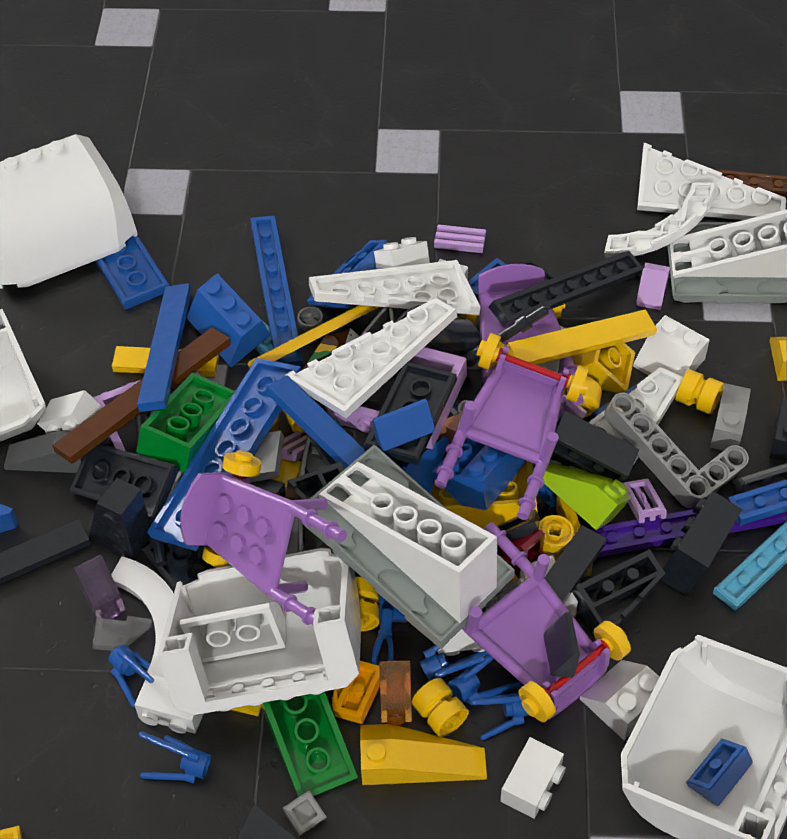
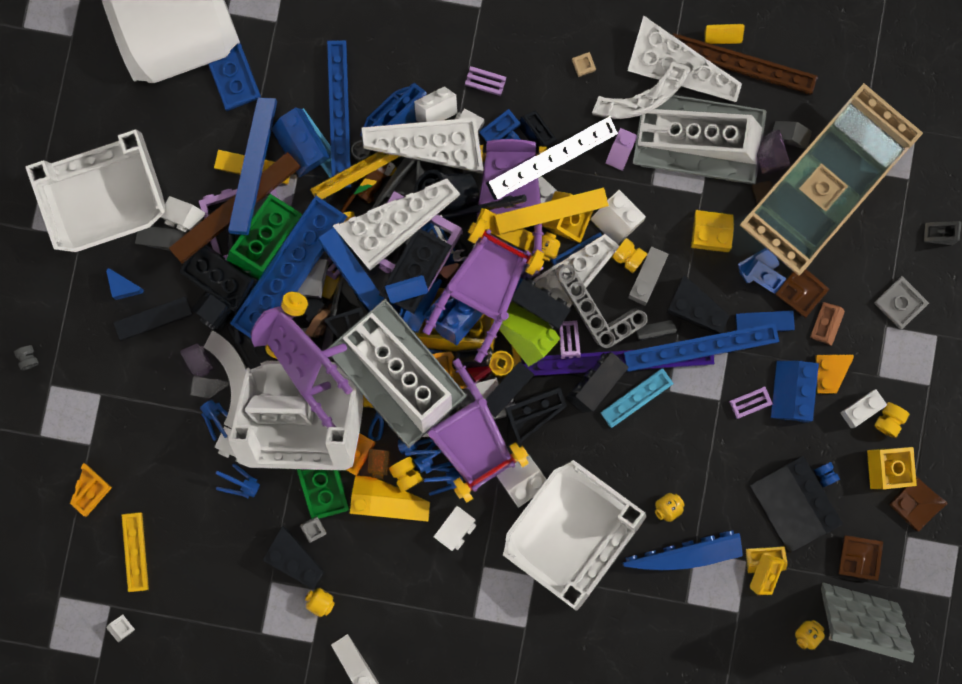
camera: 10 degrees right, 30 degrees up
(562, 647) = (484, 457): black slope -> none
(580, 209) = (583, 64): none -> tan tile
(720, 771) = (570, 540): blue slope -> none
(746, 157) = (724, 34): none -> yellow slope

